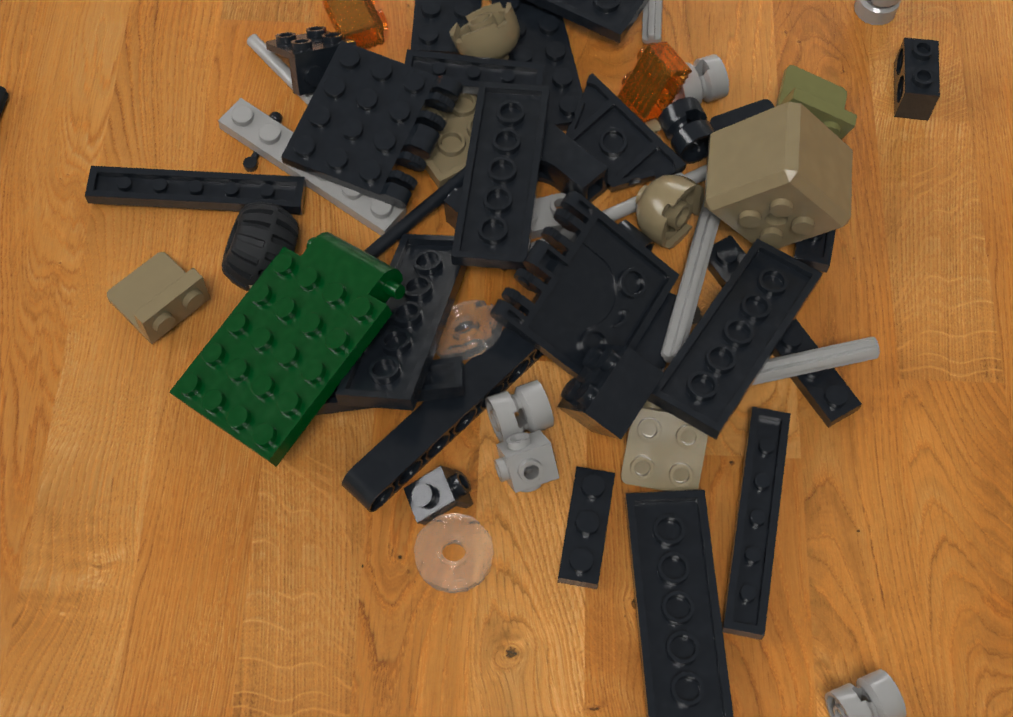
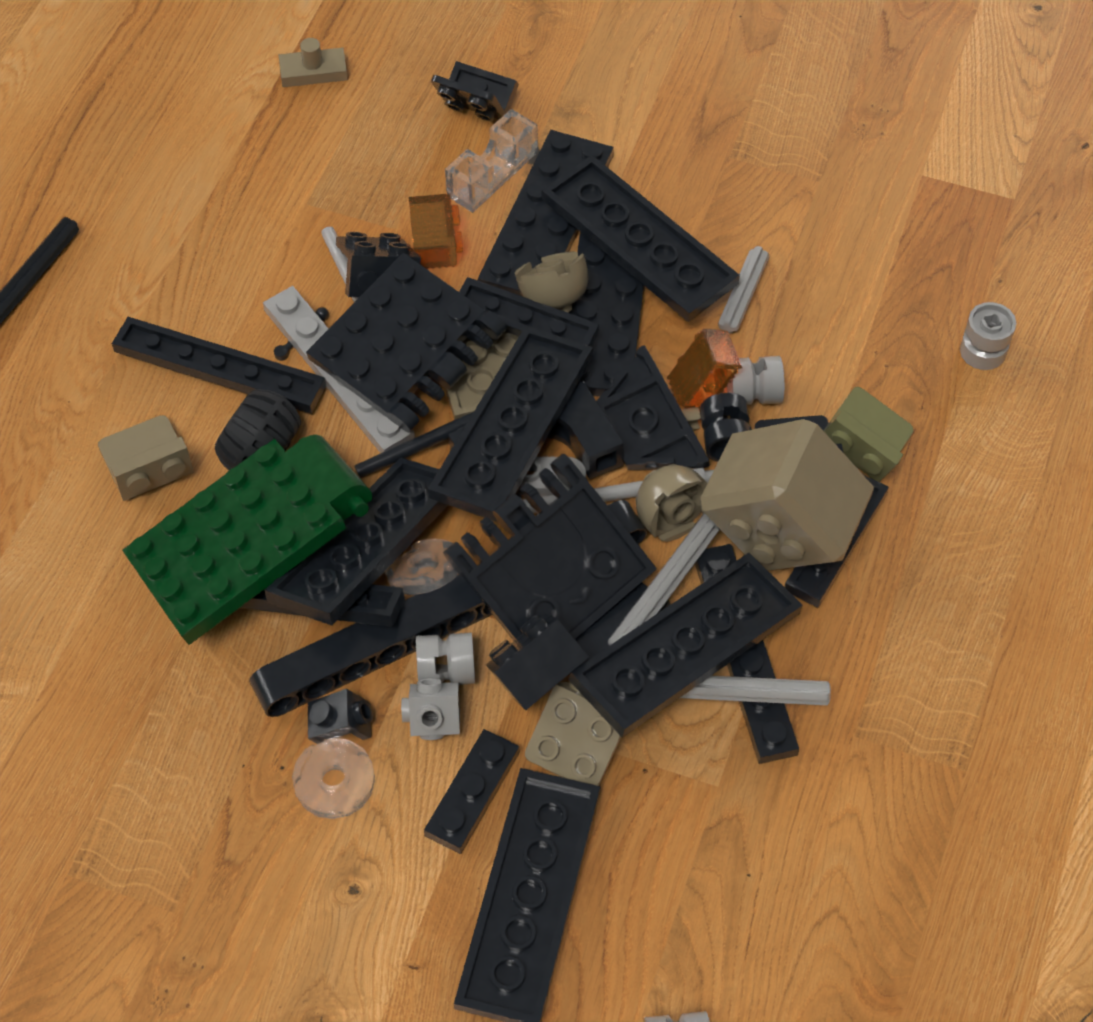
camera: 20 degrees right, 5 degrees down
(756, 524) = (642, 835): black plate -> none
(916, 79) = (990, 434): black brick -> none

